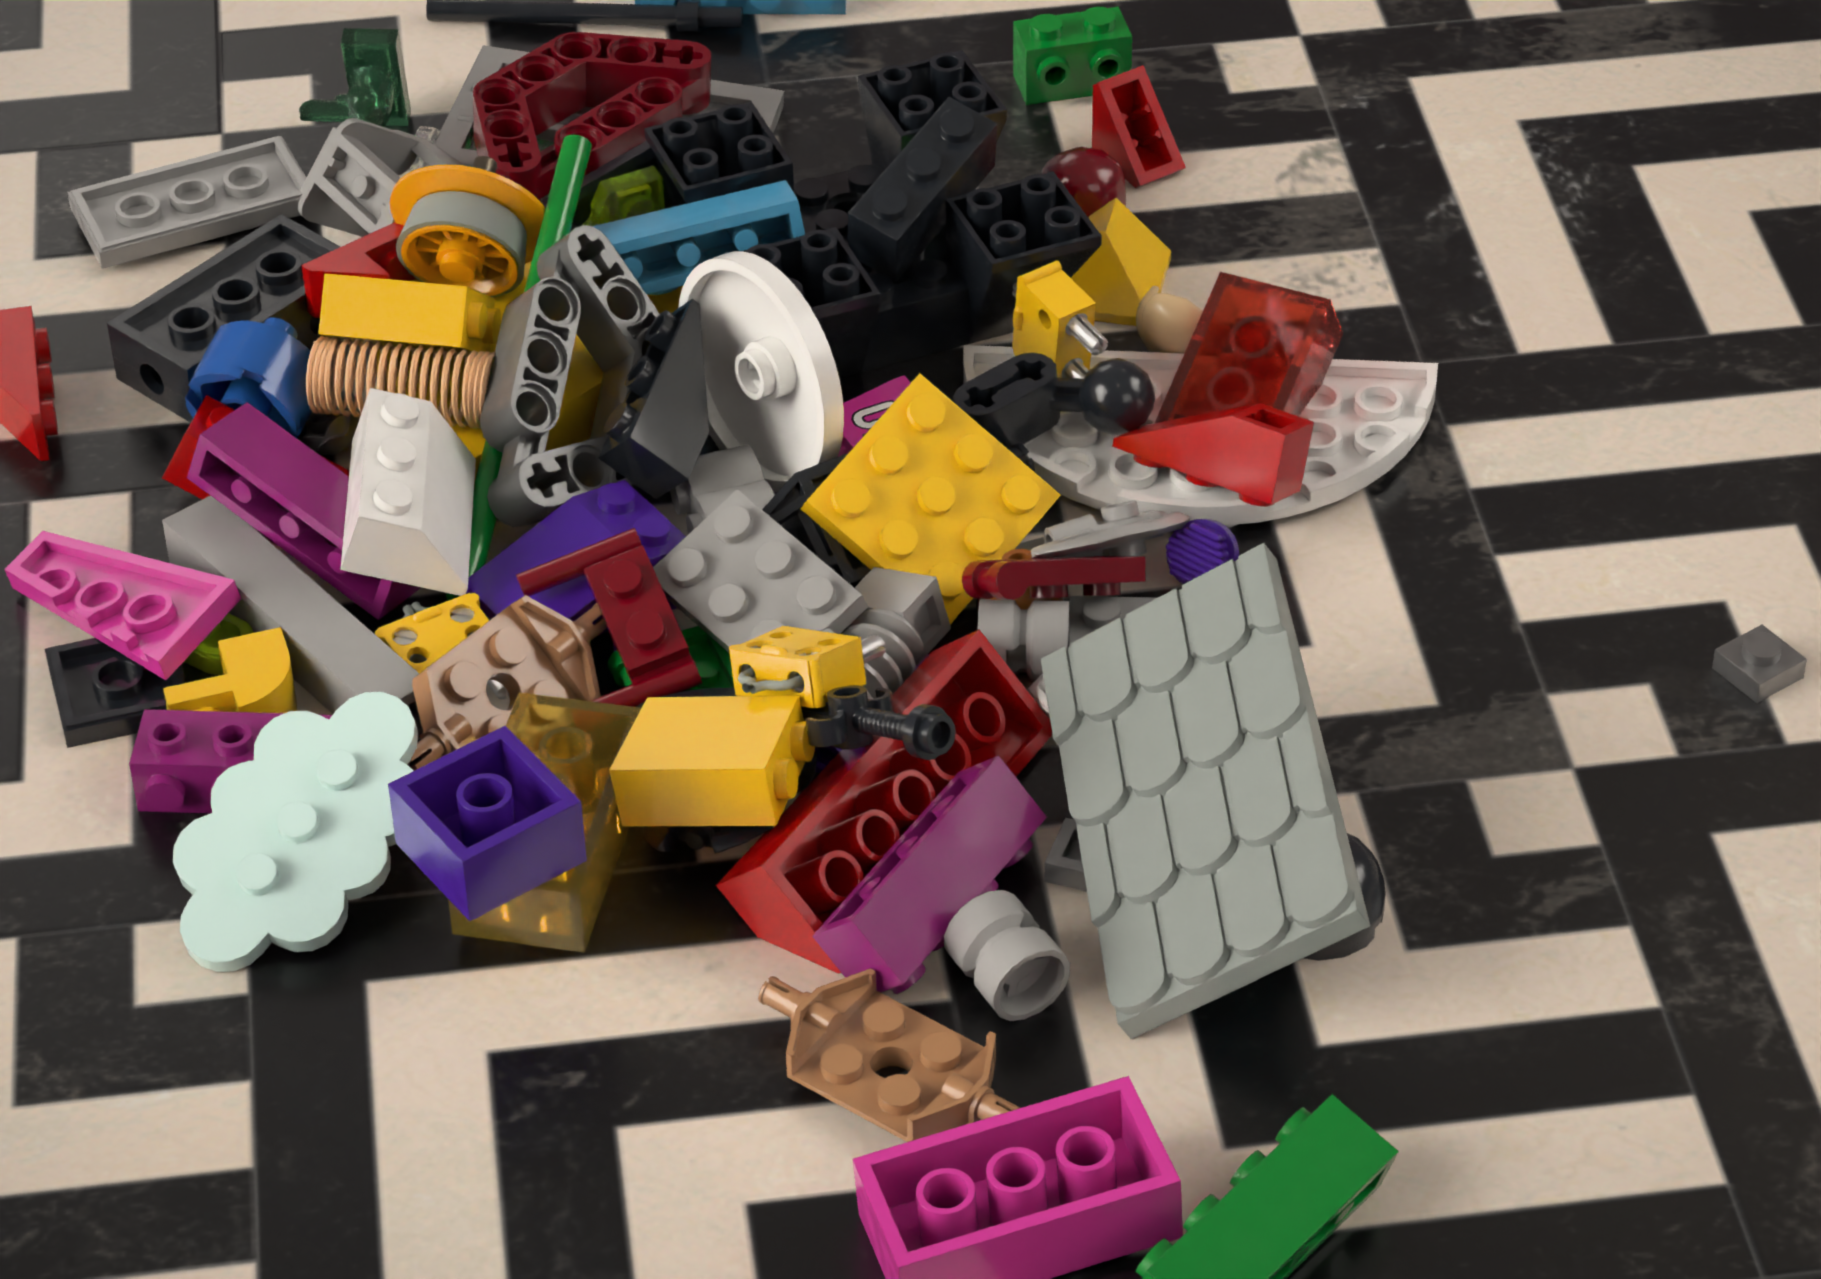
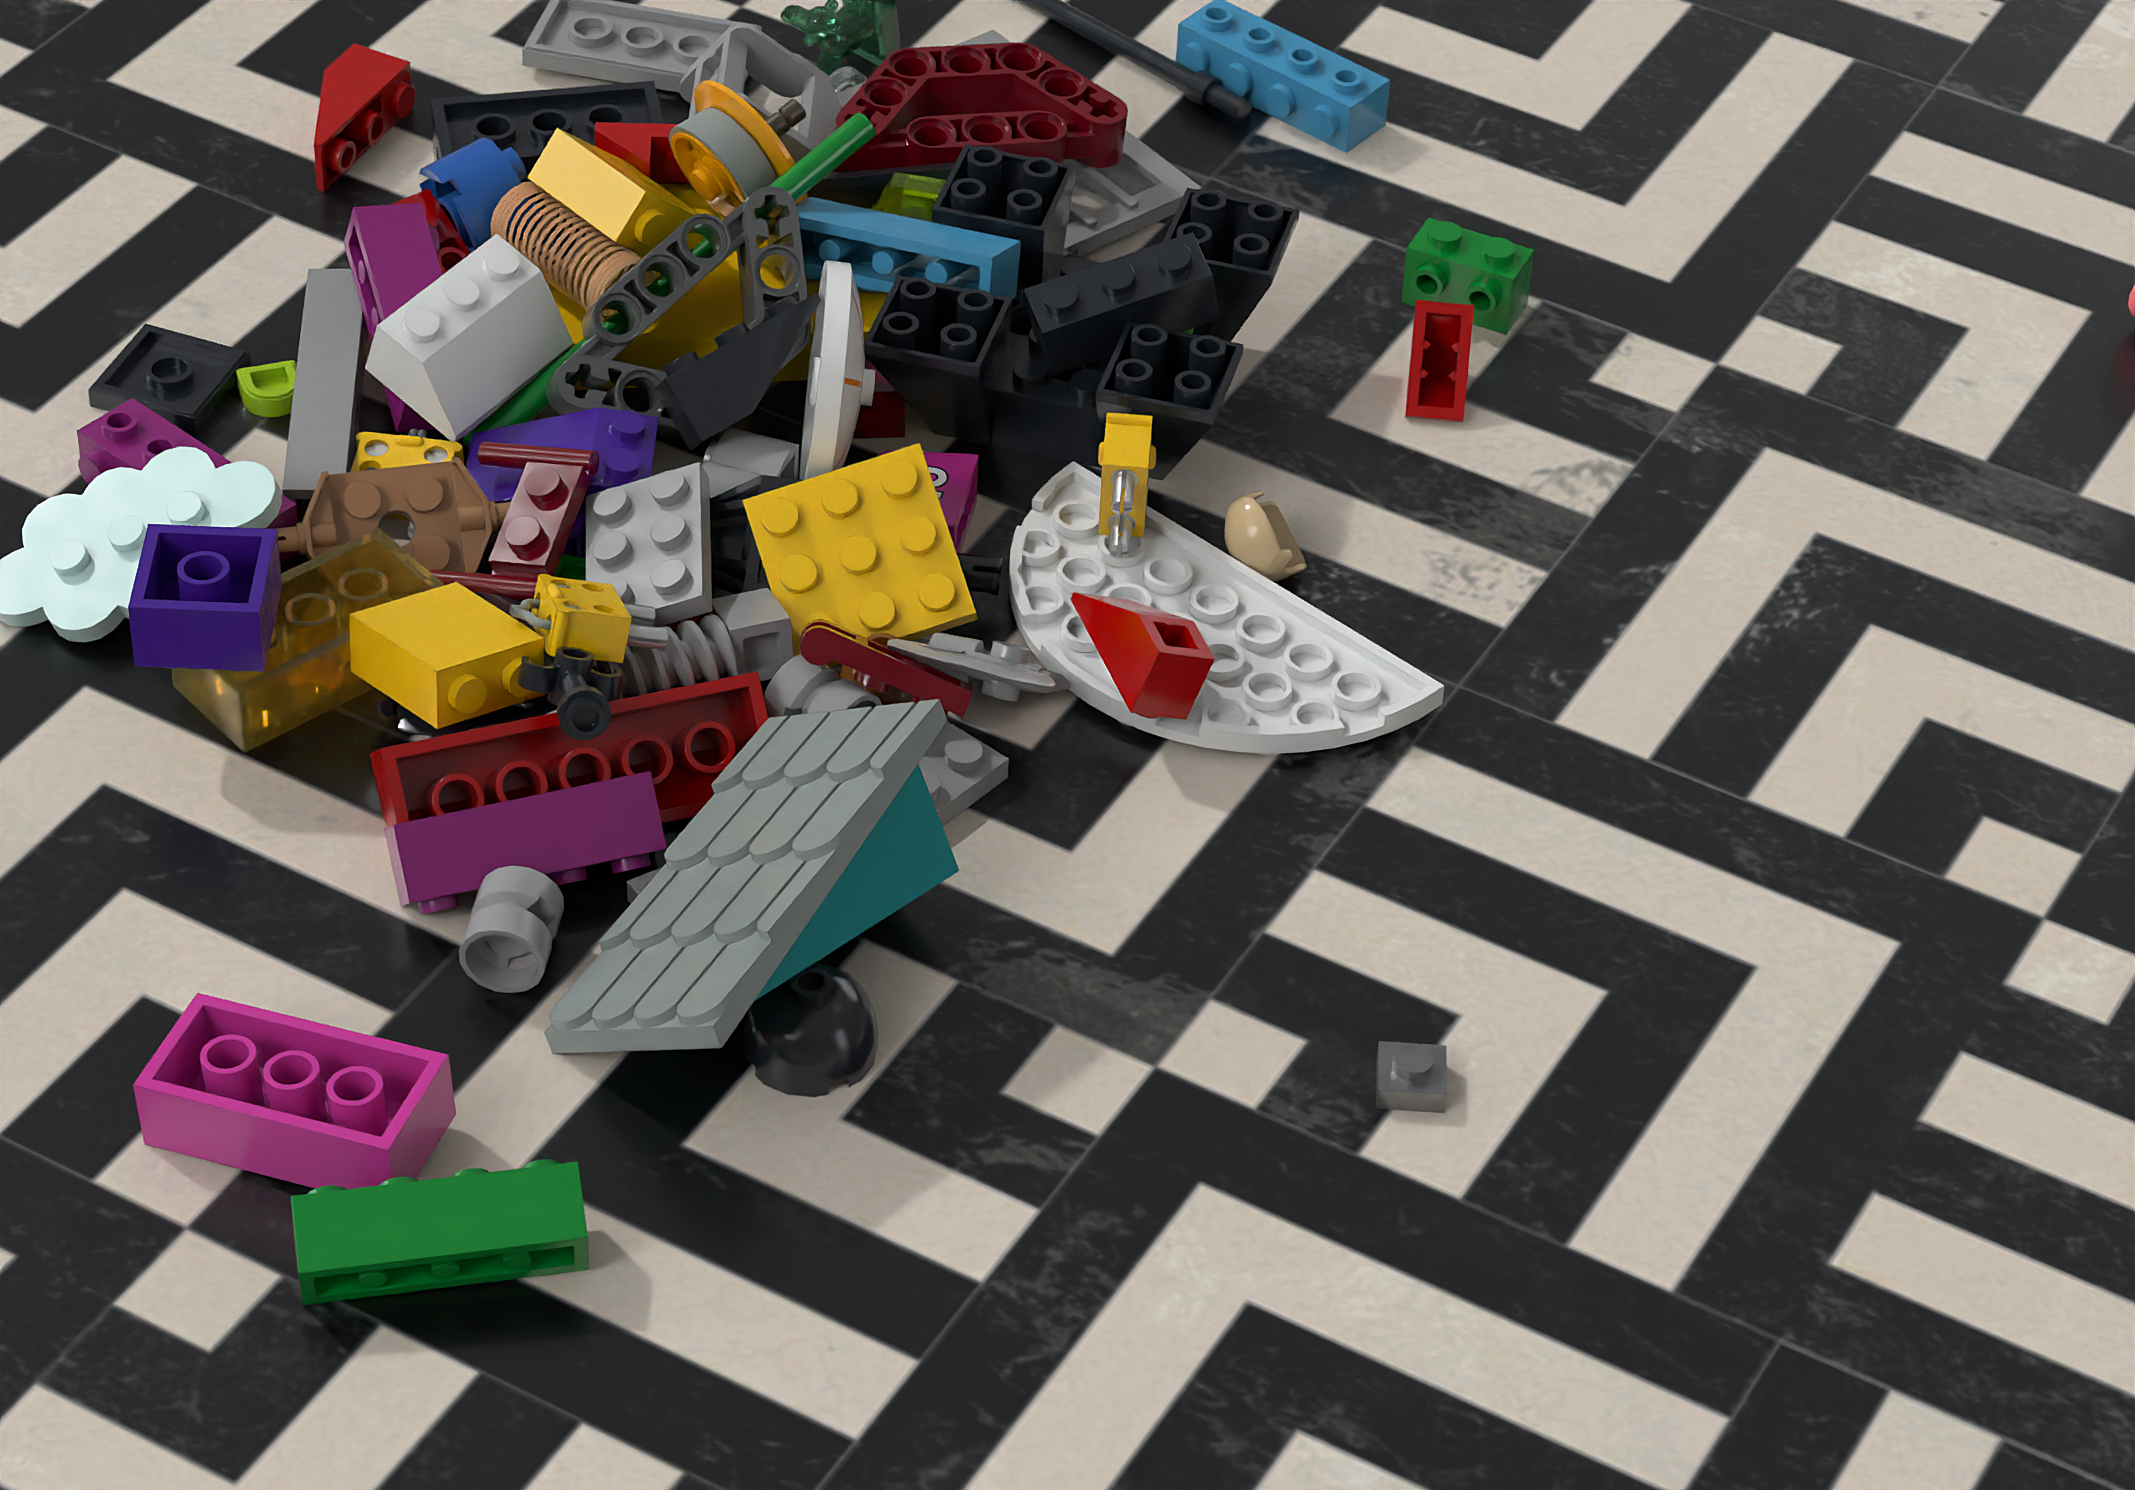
camera: 35 degrees right, 0 degrees up
(124, 599) = (227, 316): dark pink wing -> none
(254, 678) = (243, 426): yellow brick -> none
(853, 1030) = (337, 919): medium nougat plate -> none
(1026, 397) = (1043, 525): black beam -> none
(1089, 177) = (1348, 390): dark red hair -> none
(1123, 265) = (1291, 460): yellow slope -> none
(1199, 548) = (1050, 726): dark purple piece -> none
(1253, 349) = (1262, 592): clear red slope -> none

